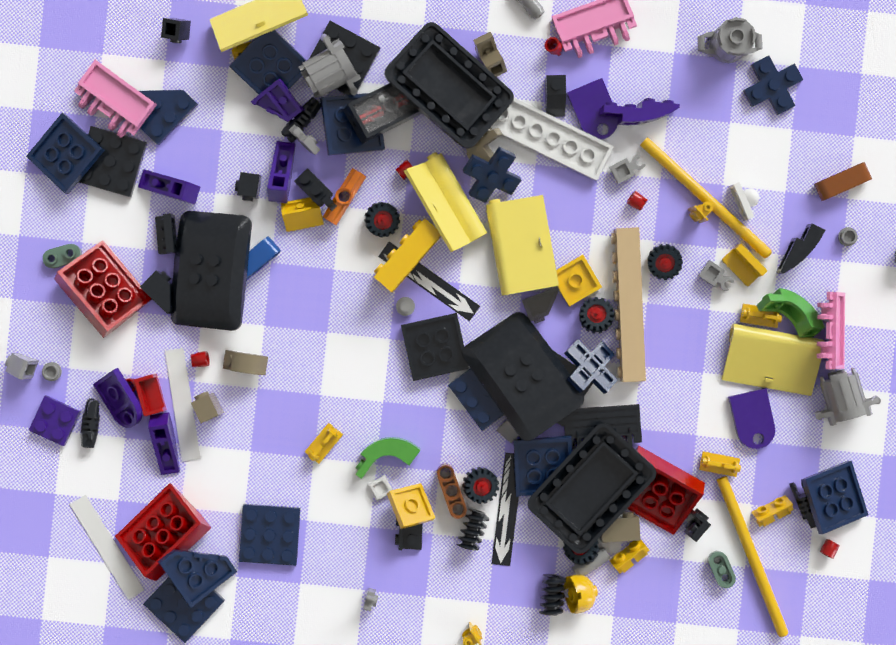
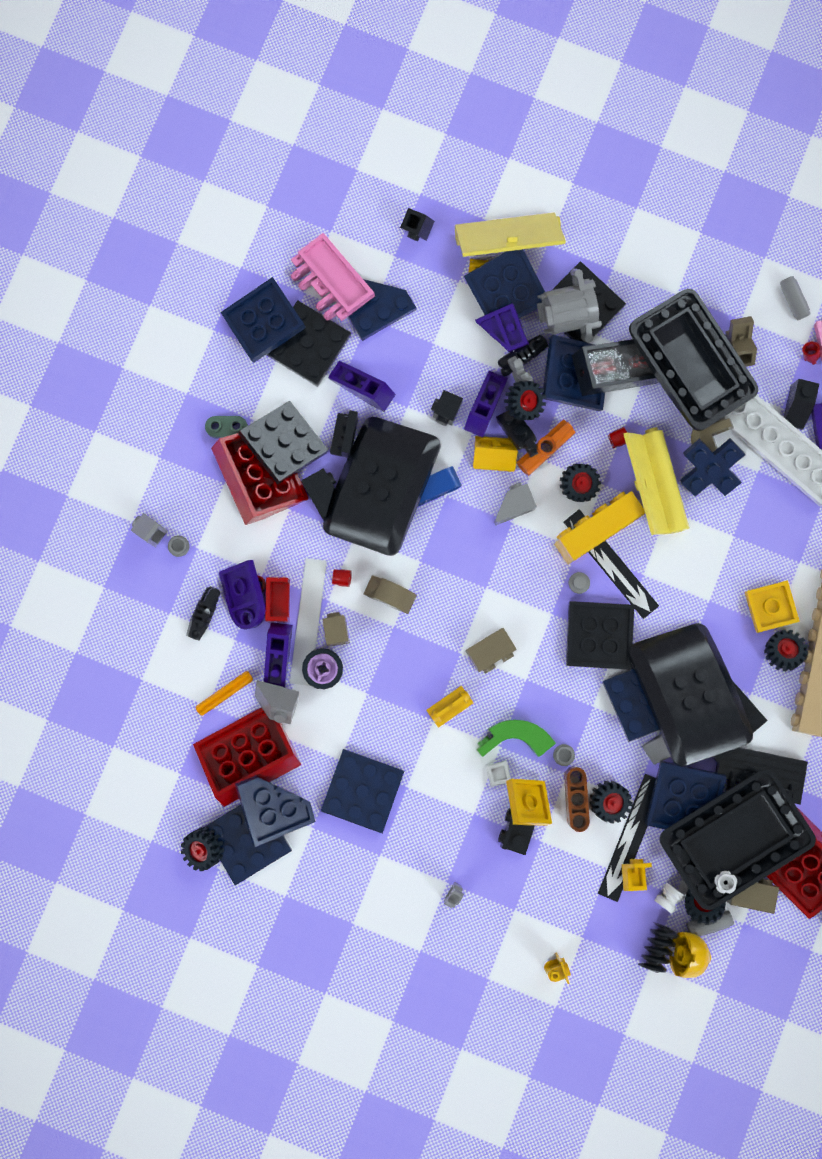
camera: 10 degrees right, 5 degrees down
(54, 420) = (165, 599): dark purple plate -> none
(107, 547) = (180, 754): white sticker -> none
(114, 256) = (283, 442): none -> plate
(128, 486) = (224, 693): none -> light orange axle
(148, 621) = (202, 849): none -> black wheel
(175, 481) = (277, 701): none -> light grey slope
(201, 451) = (322, 657): none -> wheel
(313, 162) = (525, 400): none -> black wheel
(331, 253) = (515, 503): none -> light grey slope
(344, 386) = (490, 650): none -> dark tan brick
(431, 456) = (564, 755): none -> light grey plate
(473, 530) = (589, 849): black piece -> none
(517, 250) = (718, 548): light yellow door -> none
(517, 540) = (634, 875): none -> yellow bracket
(539, 305) = (726, 621): clear smoke slope -> none
(551, 551) = (669, 898): none -> white wheel
(590, 532) = (719, 881): none -> white plate
(591, 366) = (767, 704): plate -> none
(622, 559) = (745, 931): yellow hinge -> none

